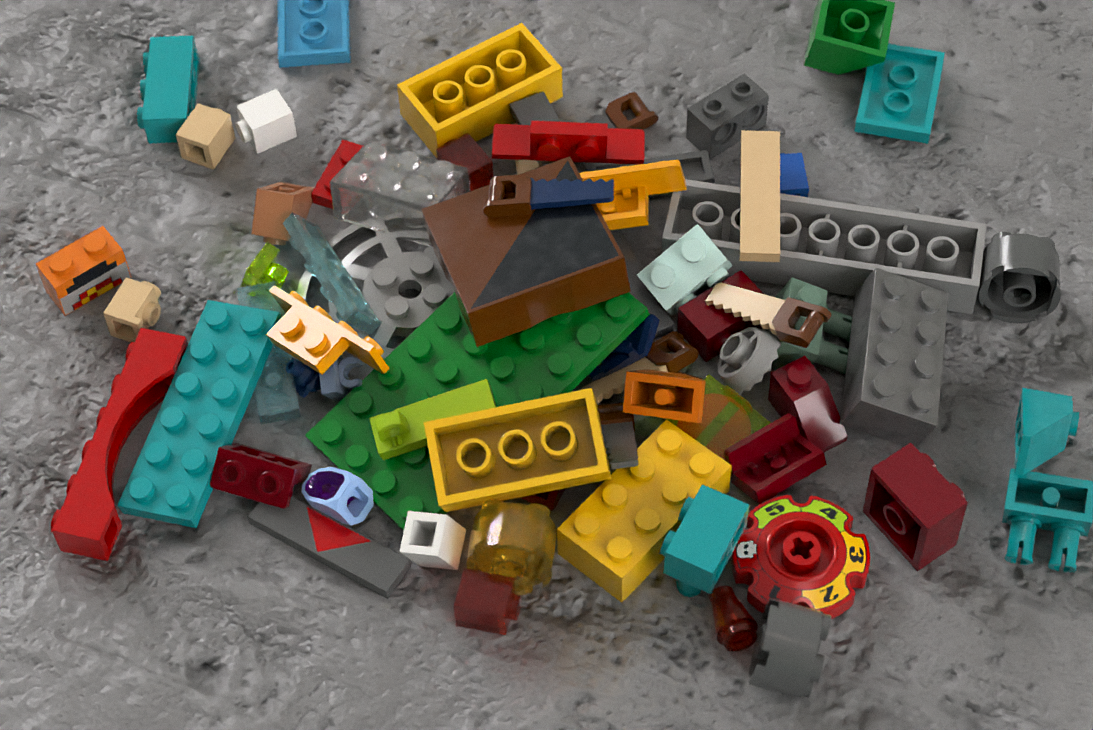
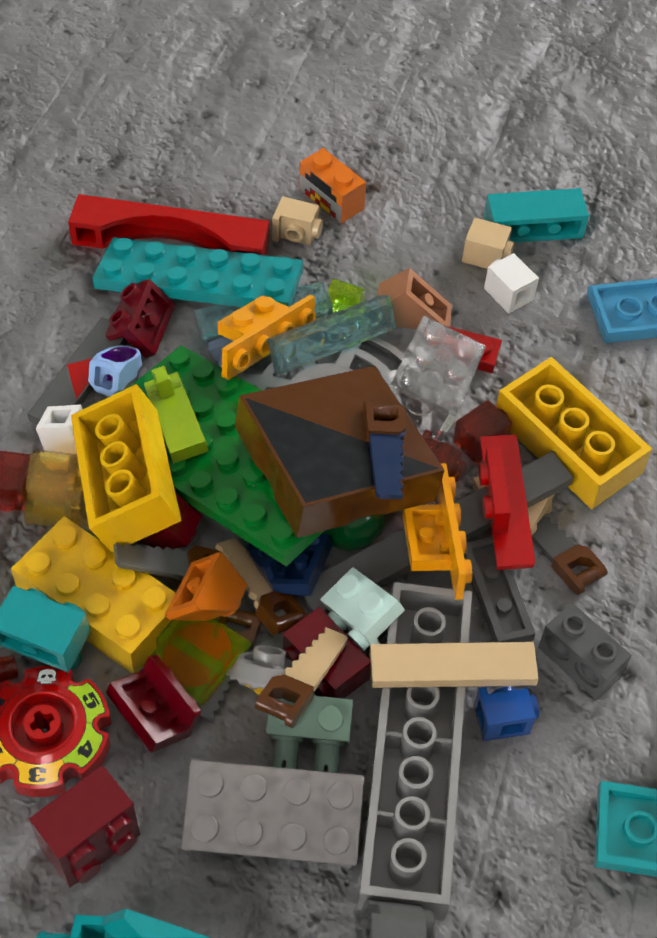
camera: 80 degrees right, 0 degrees up
(806, 395) = (221, 731): dark red slope -> none

